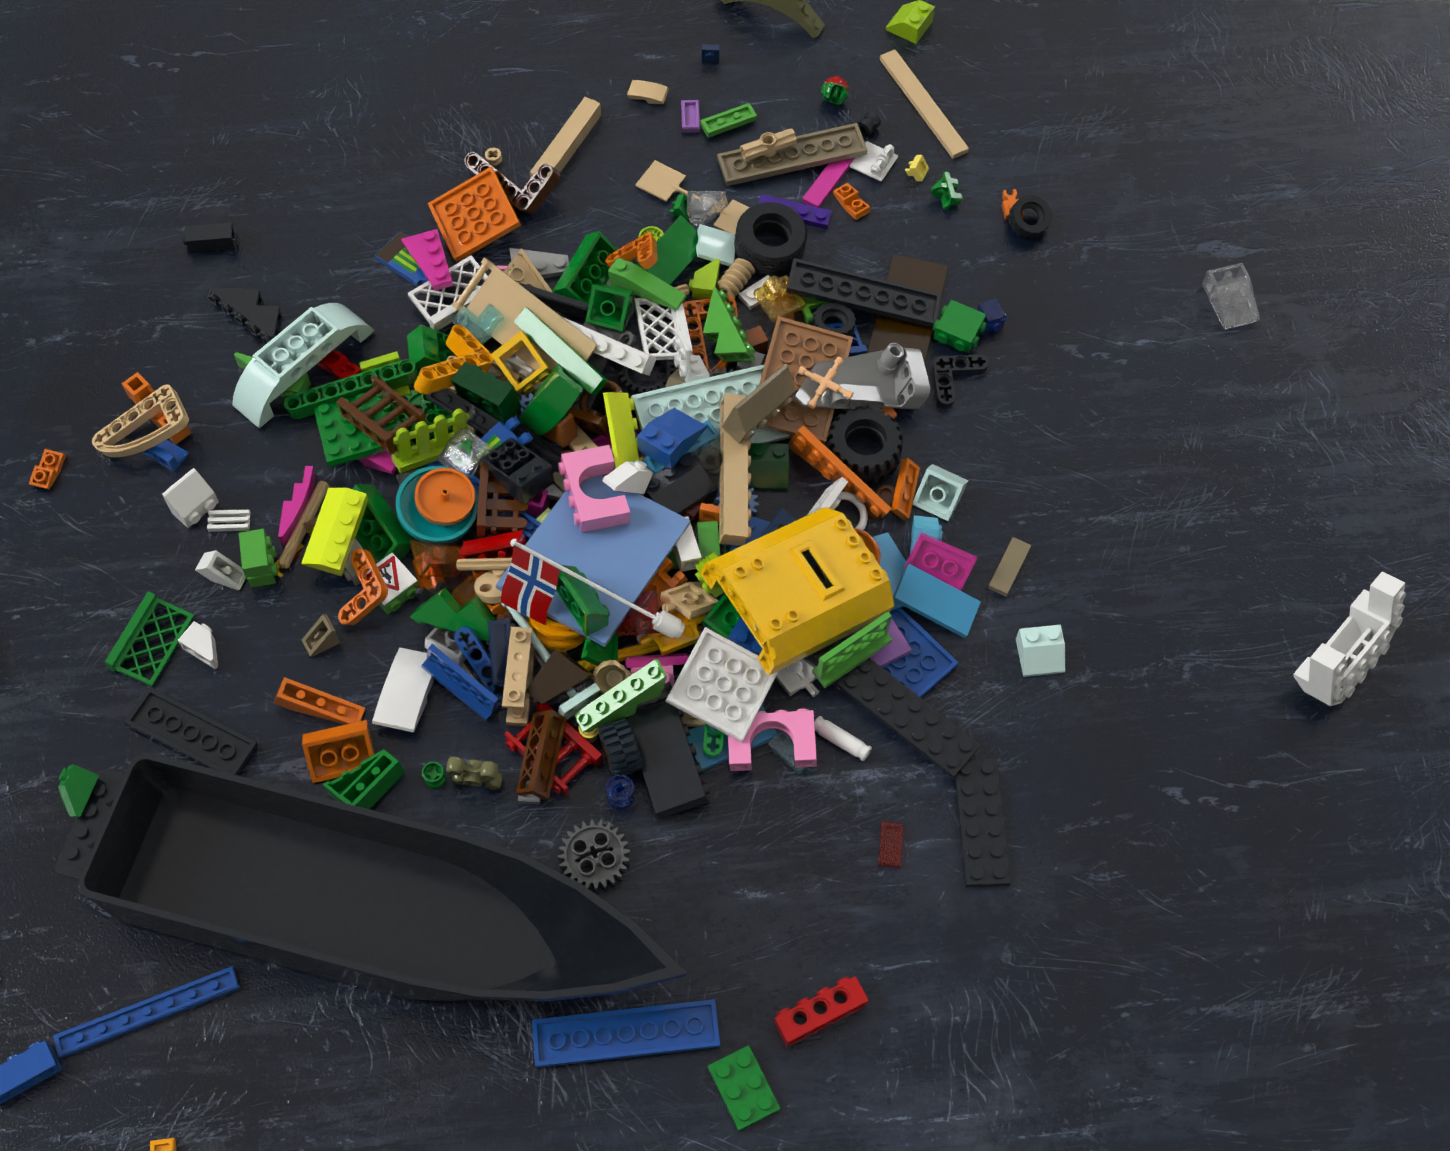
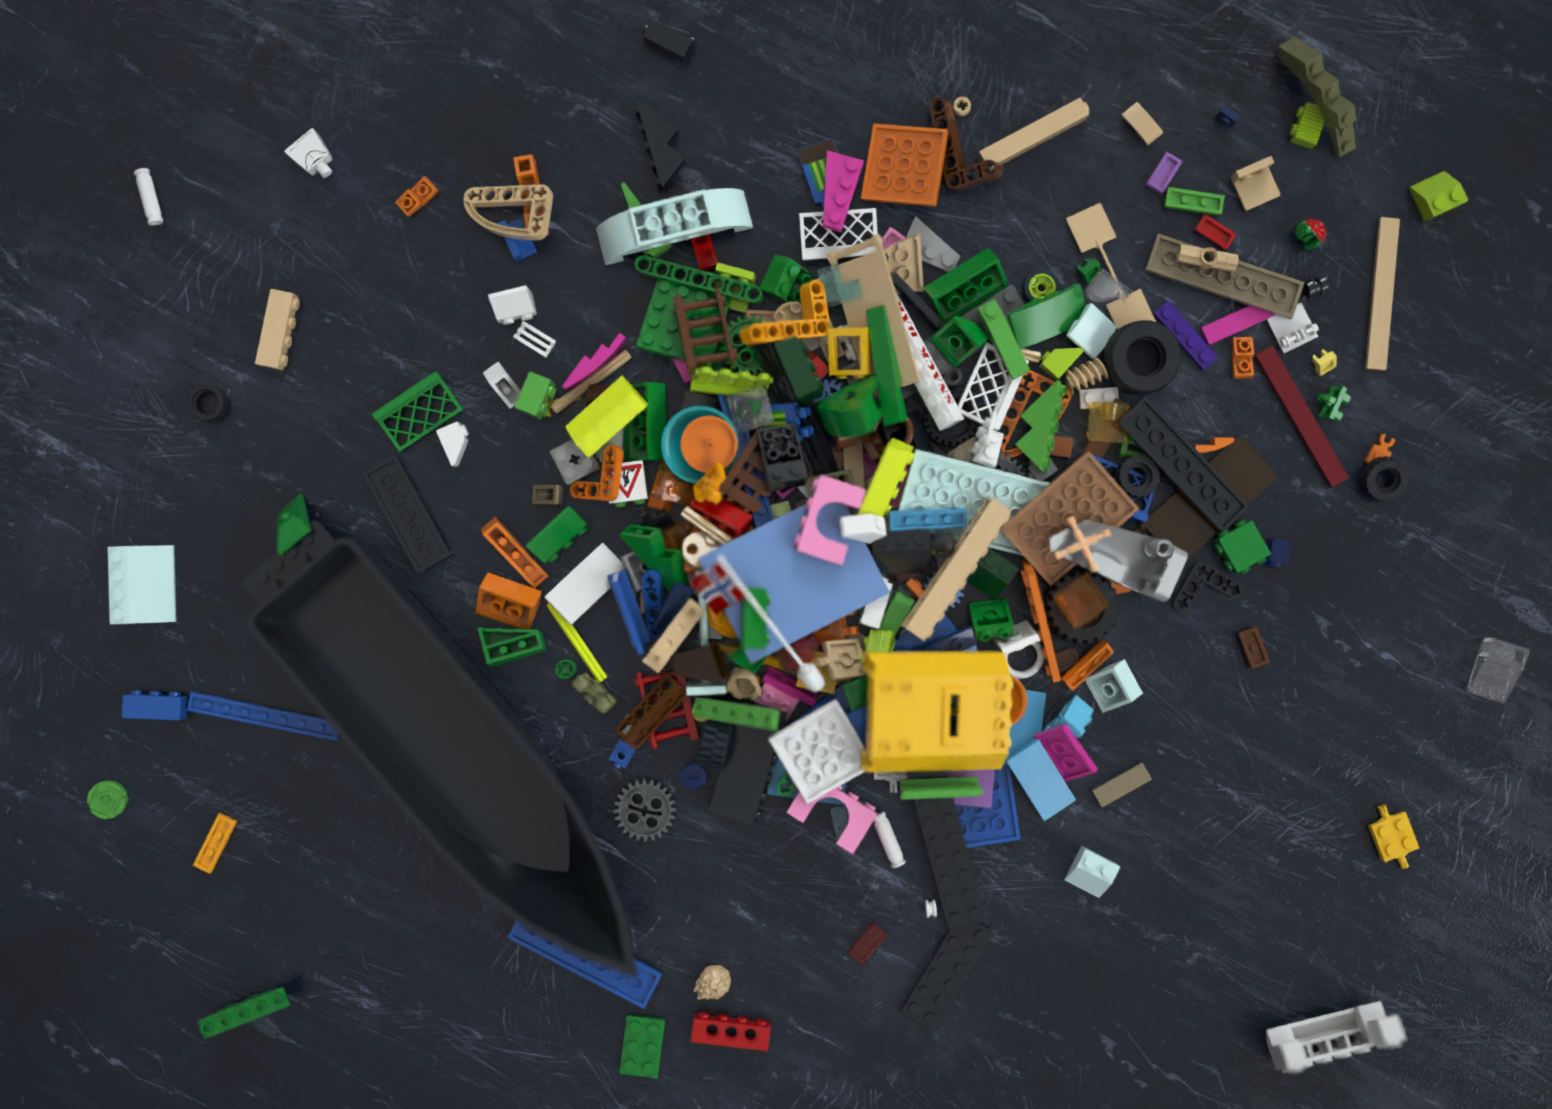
camera: 35 degrees right, 25 degrees up
(330, 604) = (570, 471): none -> light grey brick
(351, 661) = (557, 535): none -> green slope
(422, 744) = (579, 645): none -> neon yellow axle
(467, 524) = (708, 485): none -> light orange hinge
(538, 816) = (621, 754): none -> blue brick
(643, 247) = (1026, 299): orange beam -> none
(669, 437) = (923, 509): blue slope -> none
(754, 131) = (1215, 232): none -> red tile
(760, 405) = (1012, 532): dark tan slope -> none
(764, 83) = (1255, 184): none -> tan bracket
(770, 976) = (713, 982): none -> tan hair
(777, 28) = (1308, 125): none -> lime brick
(796, 498) = (991, 619): none -> green plate
(857, 429) = (1081, 601): none -> clear orange slope
(880, 267) = (1215, 444): none -> orange slope
(924, 773) = (930, 908): none -> white bush
(931, 215) = (1301, 416): none -> dark red tile
(1030, 395) = (1253, 647): none -> reddish brown plate
(1263, 468) = (1393, 836): none -> yellow plate

